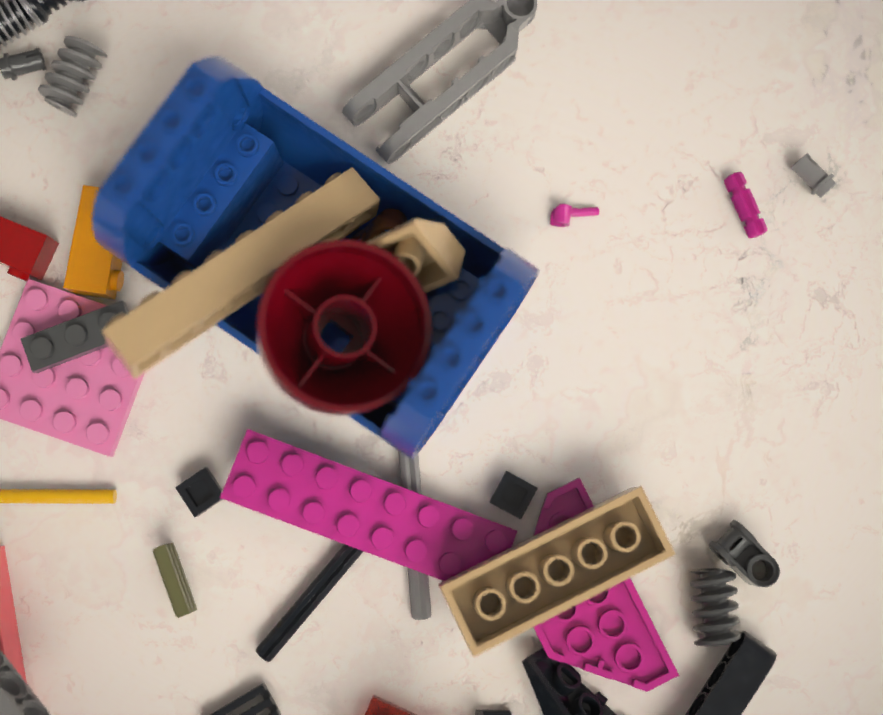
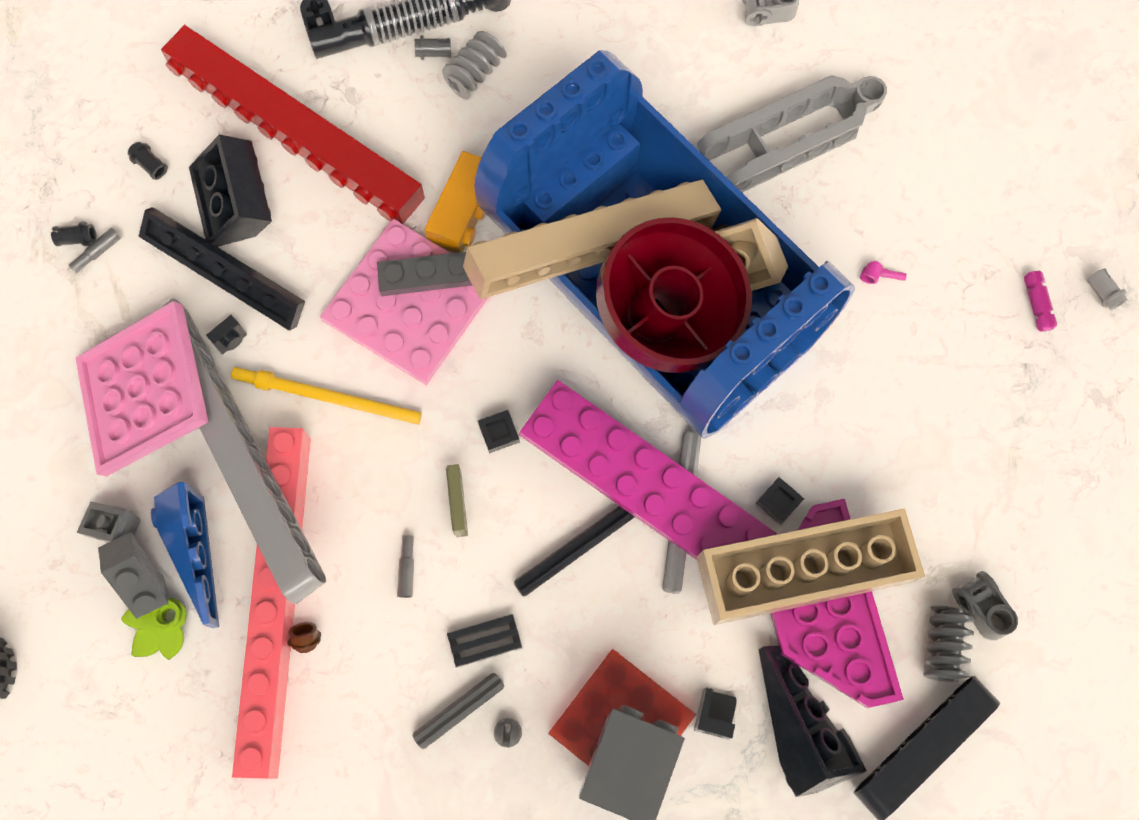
camera: 15 degrees right, 10 degrees down
(140, 662) = (406, 568): none -> flat silver pin

